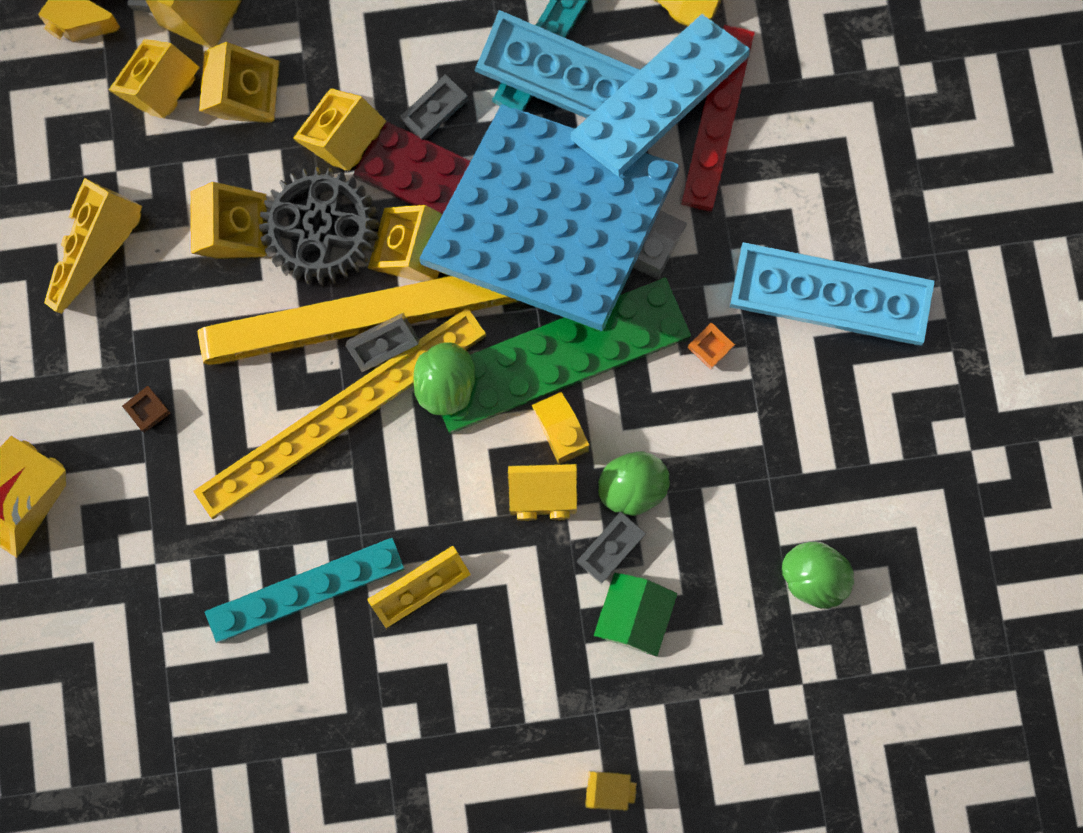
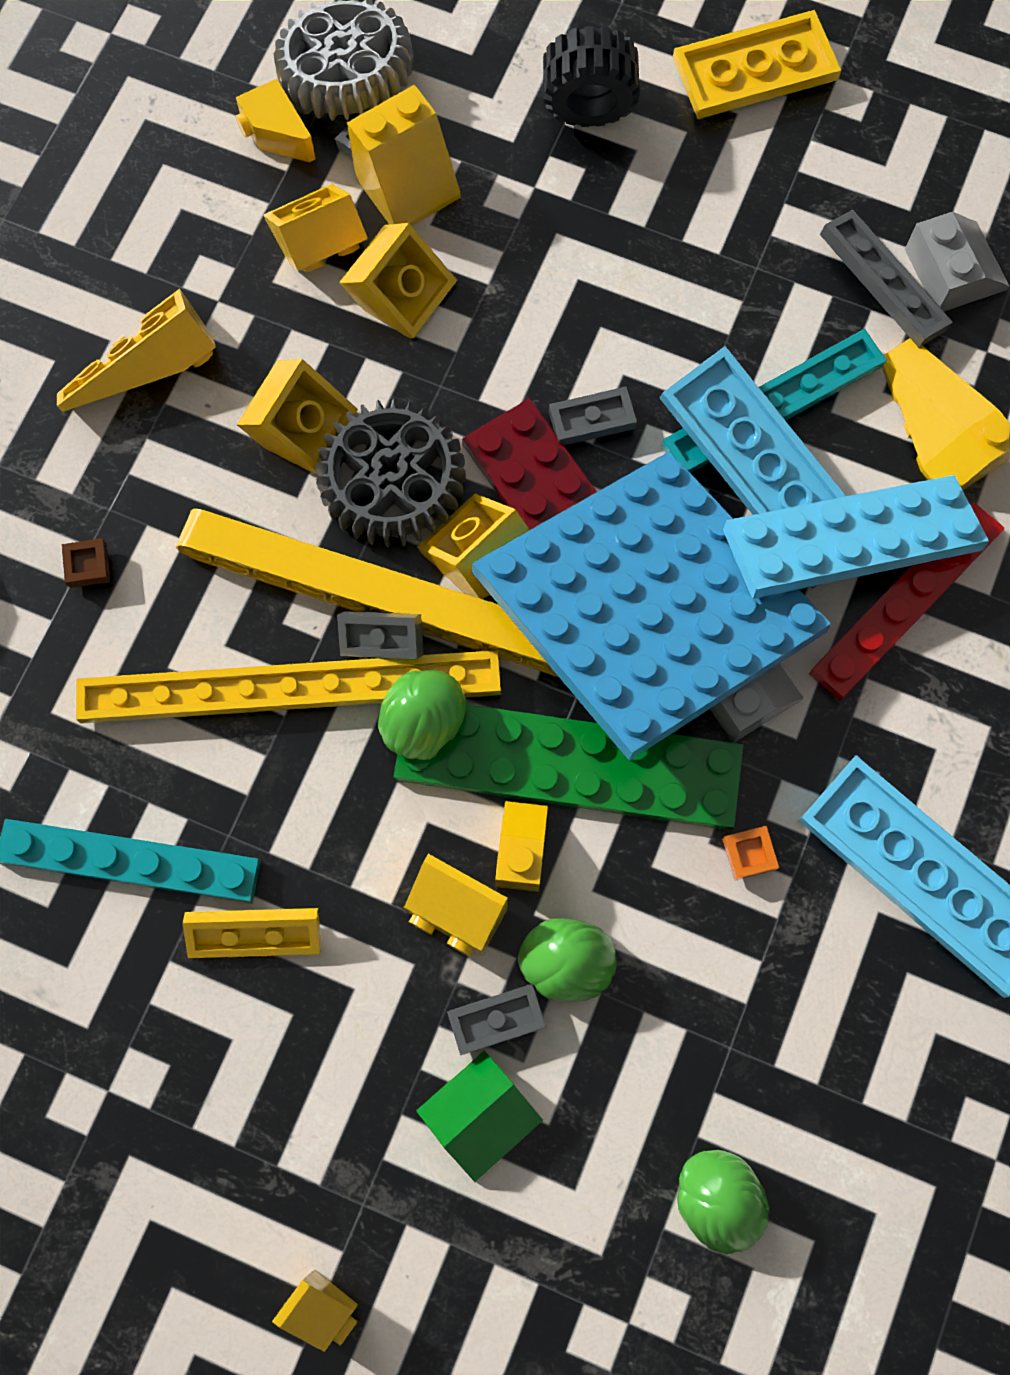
camera: 30 degrees right, 5 degrees down
(340, 129) = (478, 384): yellow slope -> none

